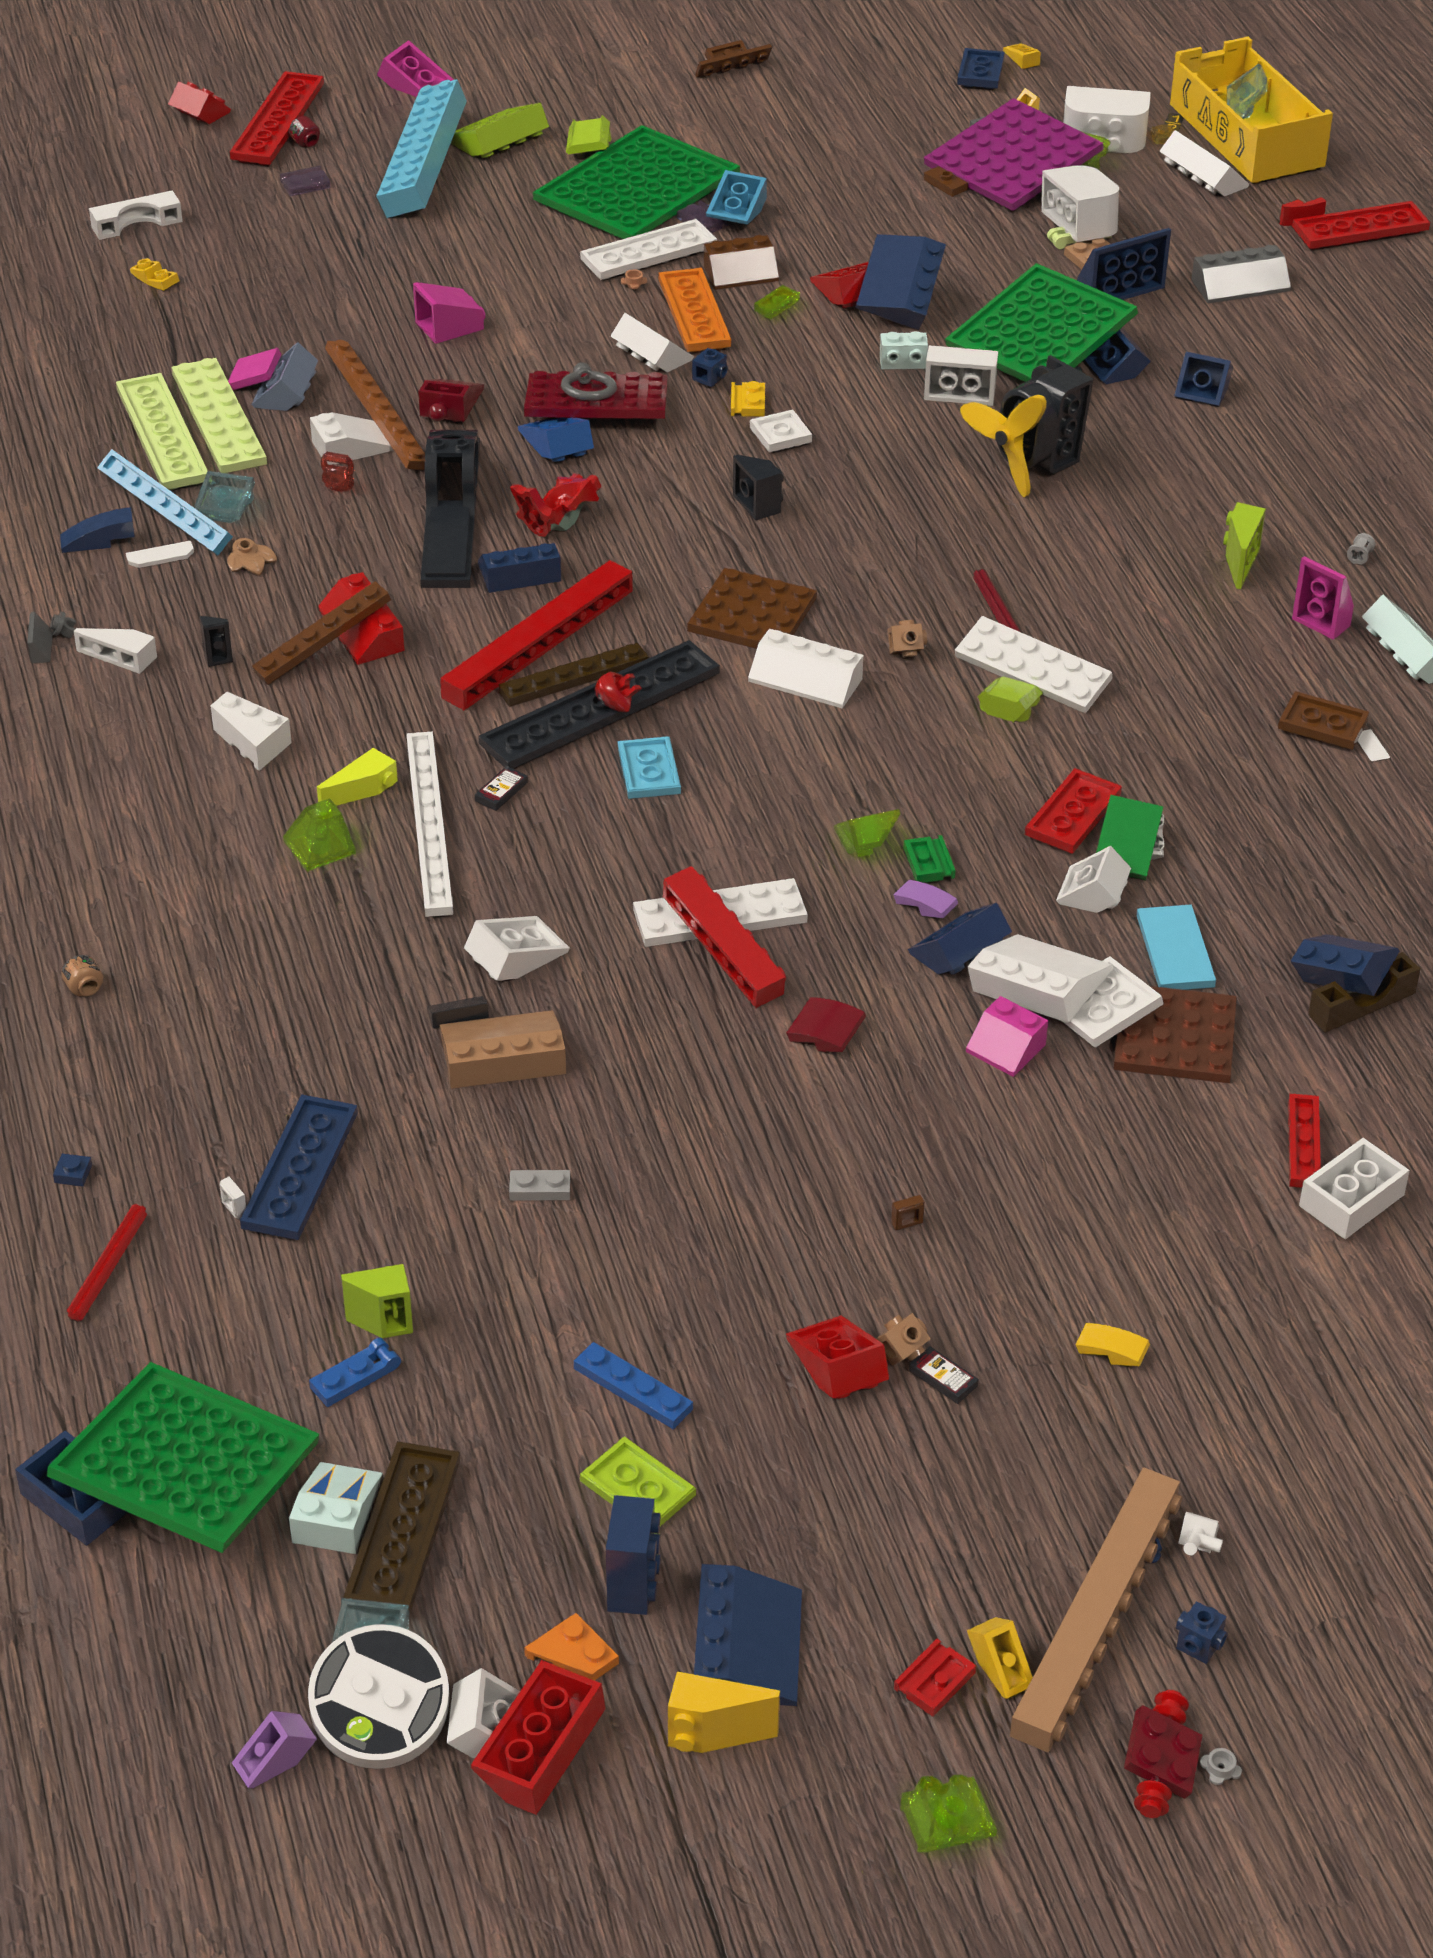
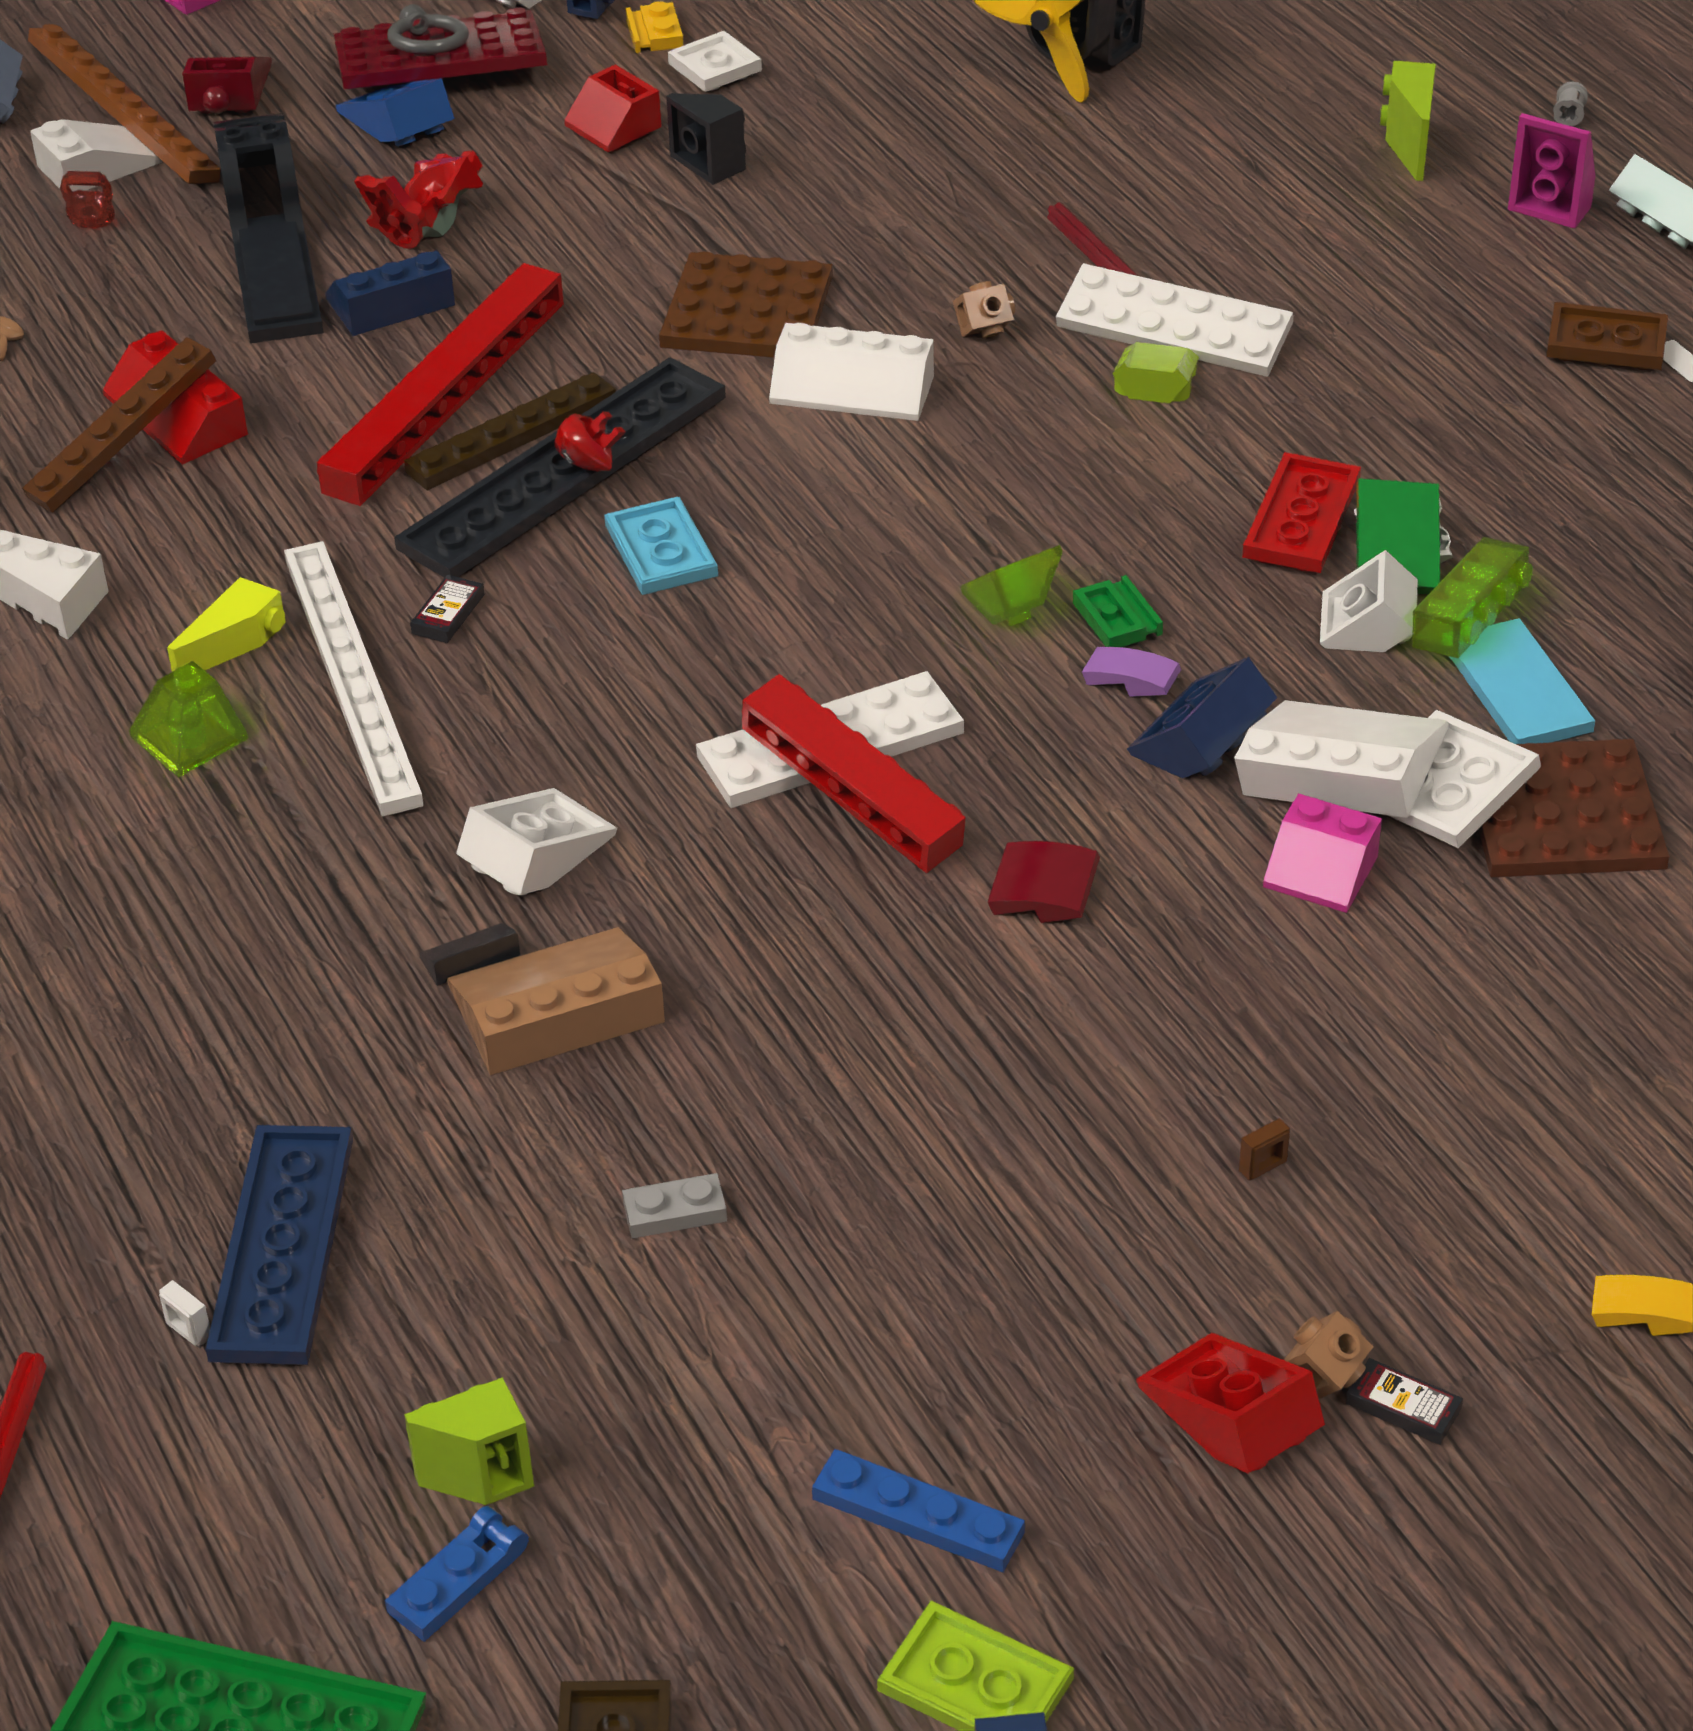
camera: 10 degrees left, 0 degrees up
(701, 457) = (614, 109): none -> red slope
(1161, 885) = (1471, 597): none -> clear neon green brick

